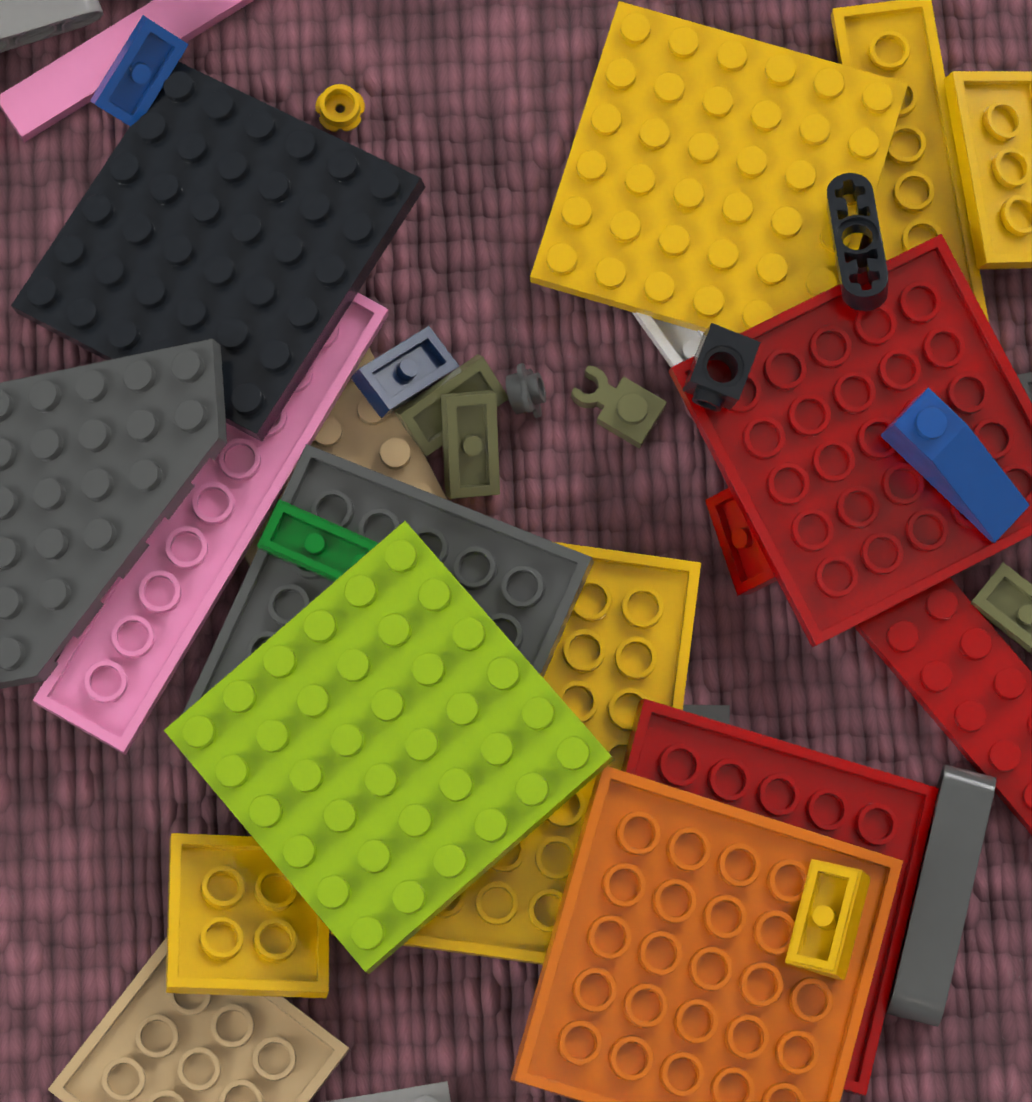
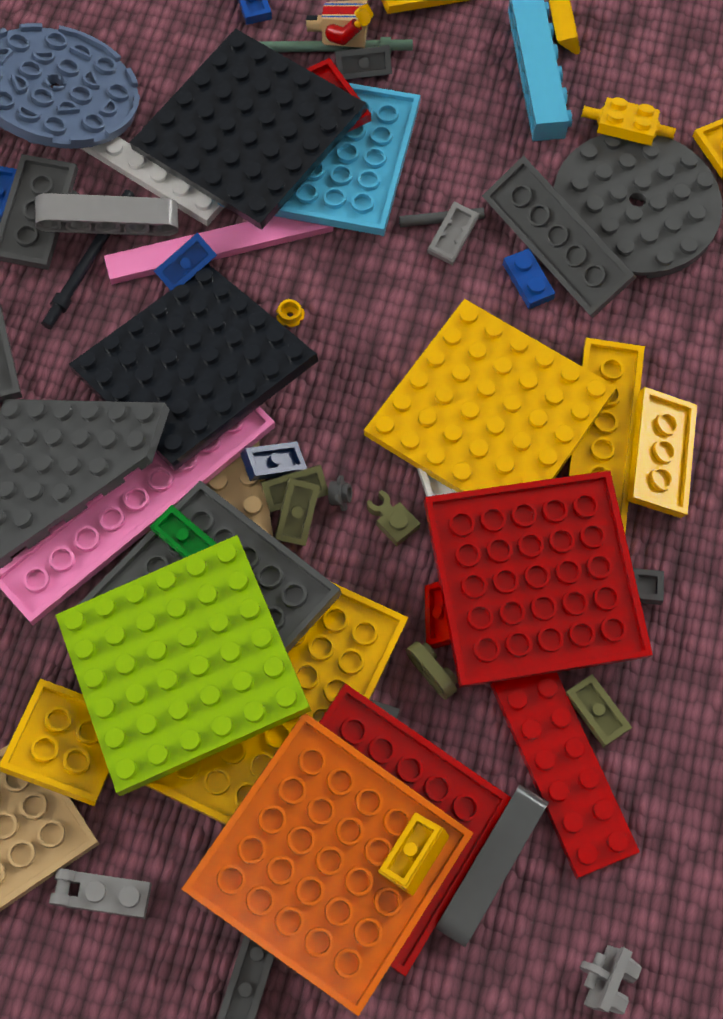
camera: 20 degrees right, 10 degrees down
(732, 349) = (454, 490): black brick -> none
(742, 618) = (439, 678): none -> olive plate
(850, 260) = (562, 469): black beam -> none
(956, 464) = (578, 602): blue slope -> none

